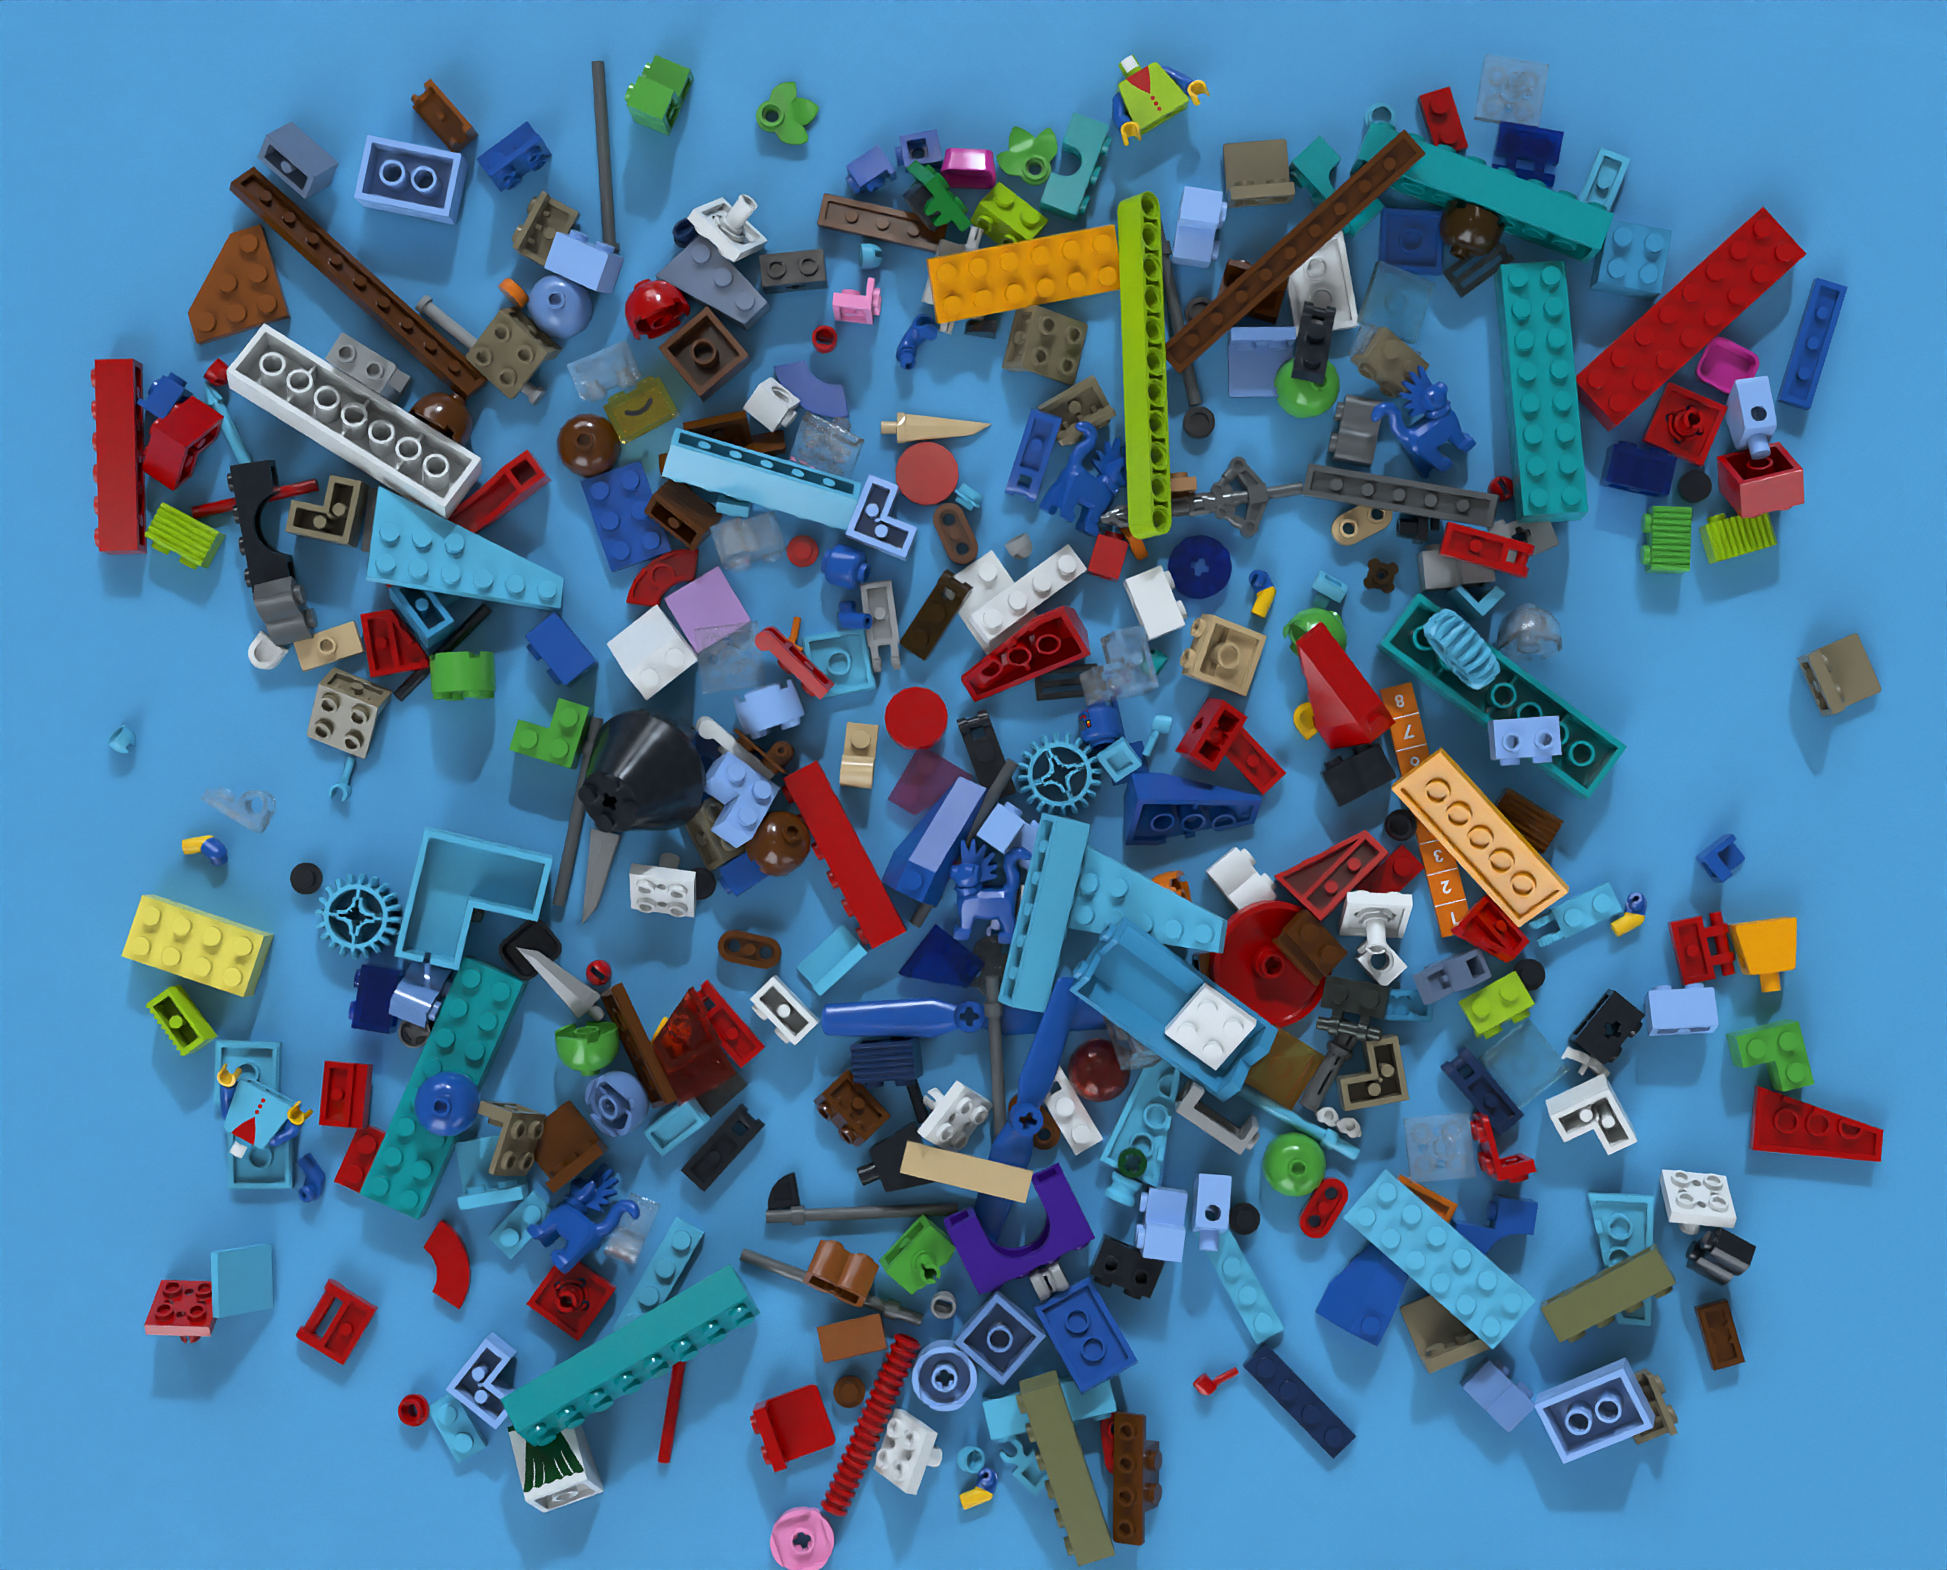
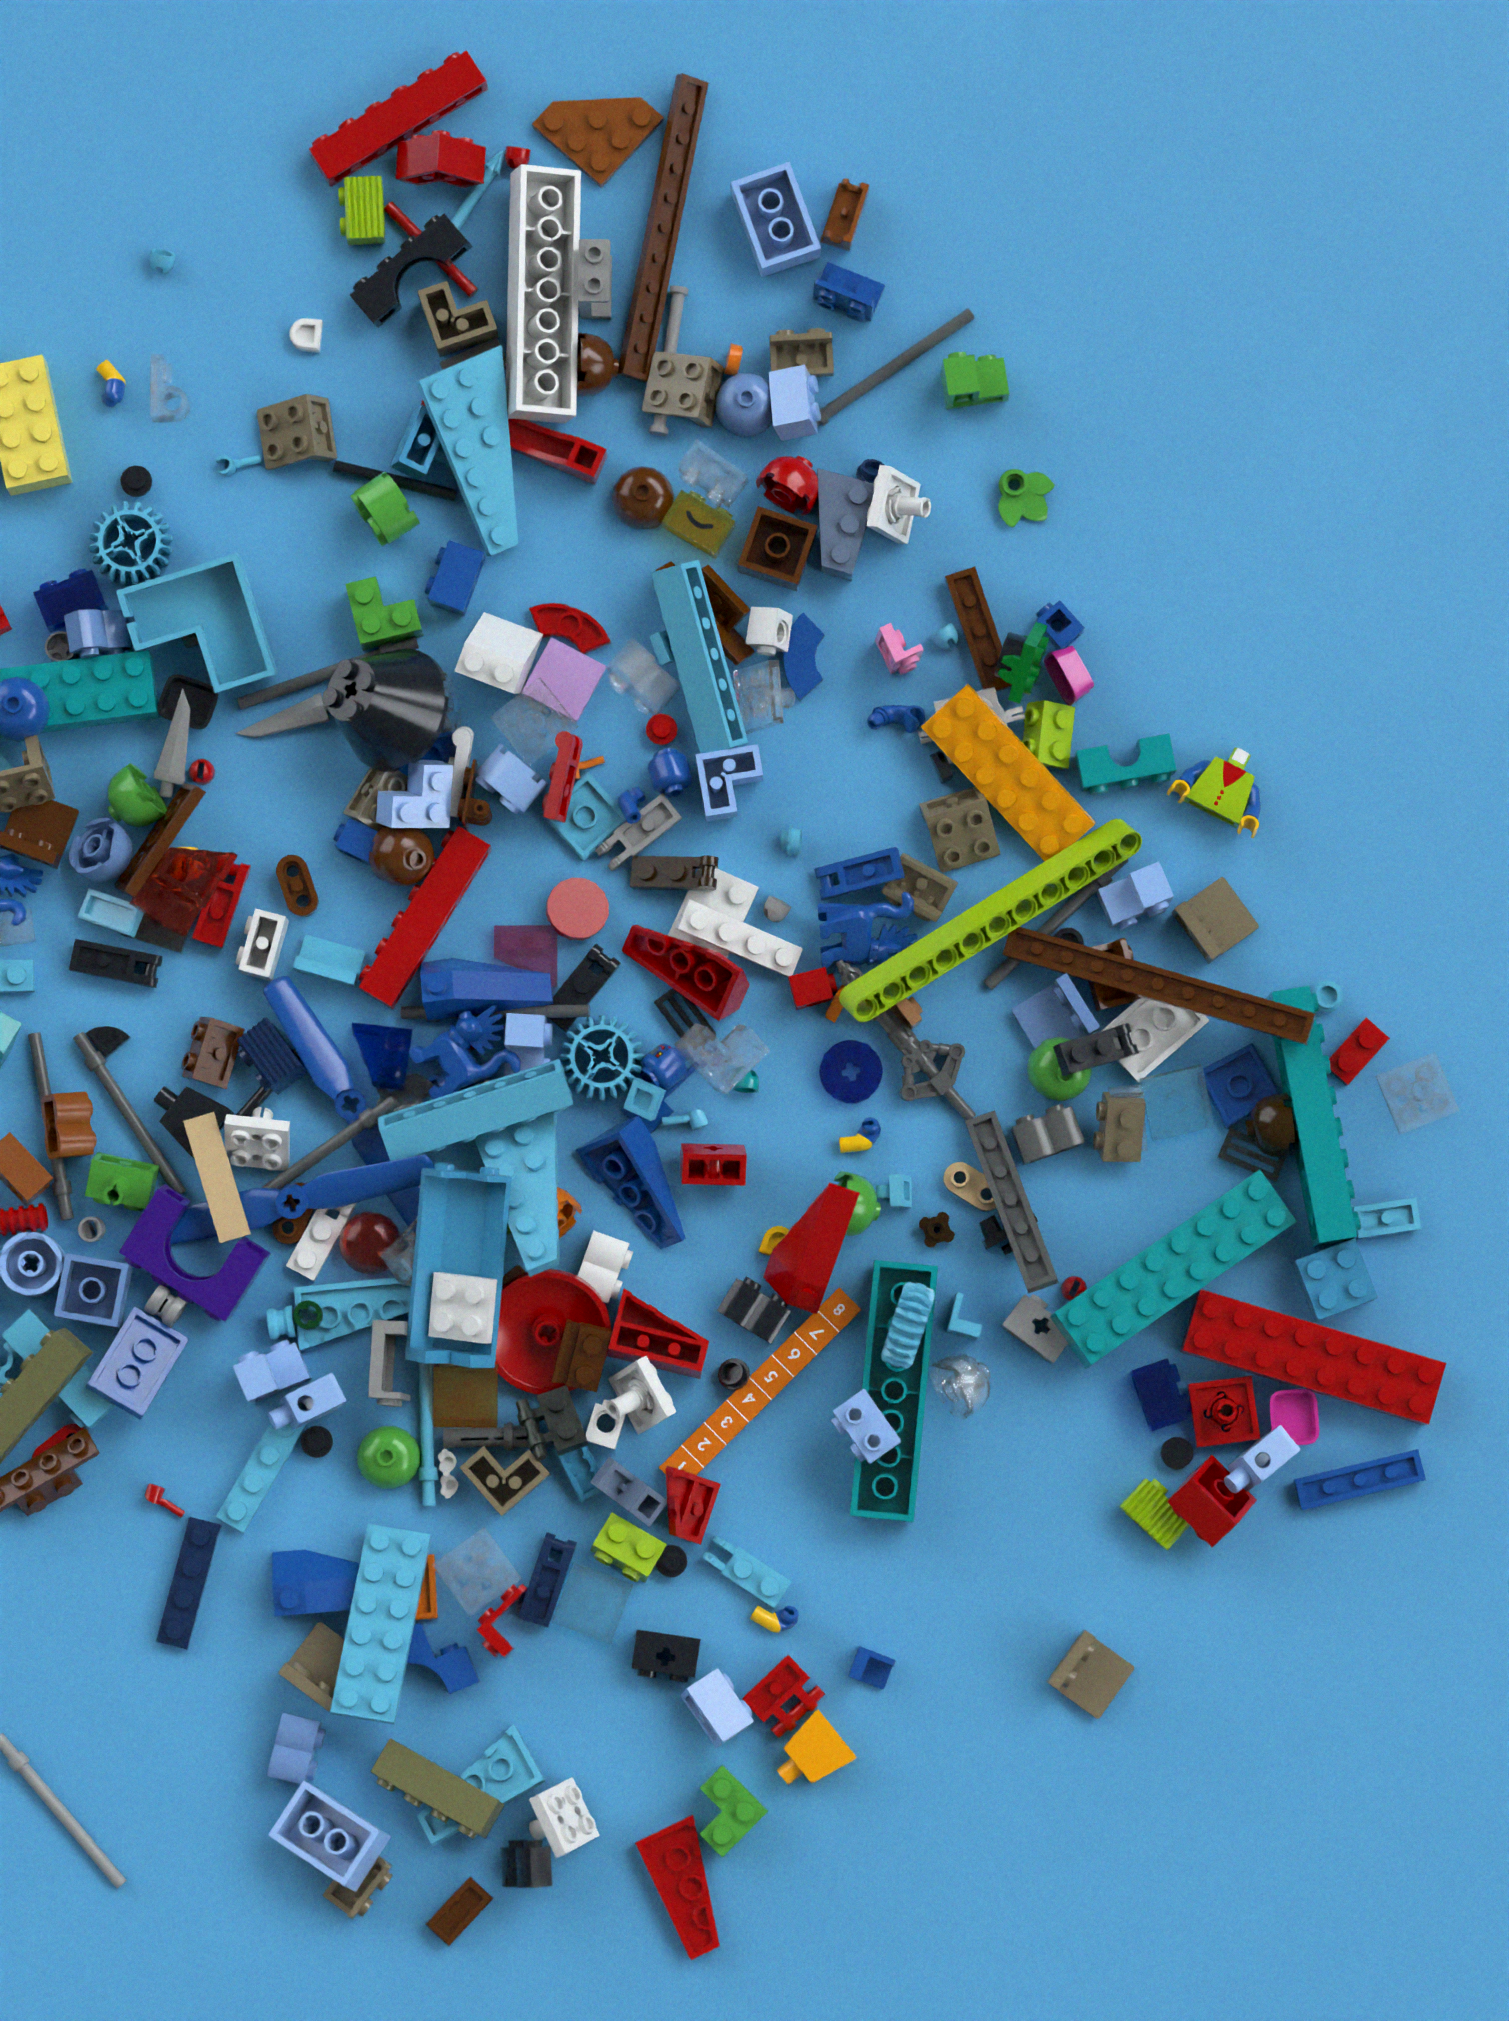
camera: 50 degrees right, 5 degrees down
(165, 394) = (472, 125): blue brick -> none
(285, 611) = (350, 330): dark grey brick -> none
(298, 160) = (735, 116): sand blue brick -> none
(329, 646) = (343, 383): tan plate -> none
(391, 645) = (375, 434): red wing -> none
(618, 508) = (602, 565): blue plate -> none
(663, 888) = (305, 781): white plate -> none
(682, 513) = (632, 609): reddish brown brick -> none
(705, 883) = (328, 811): black tile -> none
(793, 271) = (892, 580): black brick -> none
(827, 335) = (856, 638): red hinge -> none
(859, 755) = (517, 880): tan plate -> none
(869, 171) = (1016, 593): blue brick -> none
(918, 427) = (824, 762): tan bar -> none
(927, 473) = (790, 794): red tile -> none
(955, 534) = (753, 849): reddish brown plate -> none
(1027, 152) = (1116, 716): bright green plate -> none
(1124, 1266) = (214, 1362): black brick -> none
(1155, 603) = (795, 1051): white brick -> none
(1198, 422) = (973, 997): black tile -> none
(1222, 654) = (787, 1134): tan plate -> none
(1254, 762) = (712, 1215): red plate -> none
(1312, 171) = (1247, 965): teal arch -> none
(1325, 1208) = (366, 1503): red plate -> none
(1393, 872) = (689, 1392): red plate -> none
(1432, 430) = (1081, 1195): blue animal -> none
(1445, 573) = (982, 1289): light grey brick -> none
(1480, 837) = (761, 1445): light orange plate -> none
(1485, 549) = (1004, 1295): red plate -> none
(1529, 819) = (799, 1476): reddish brown brick -> none
(1531, 145) = (1381, 1134): clear blue plate -> none
(1587, 1062) = (626, 1656): white piece -> none
(1592, 1107) = (590, 1684): white brick -> none
(1666, 539) = (1115, 1455): bright green brick -> none

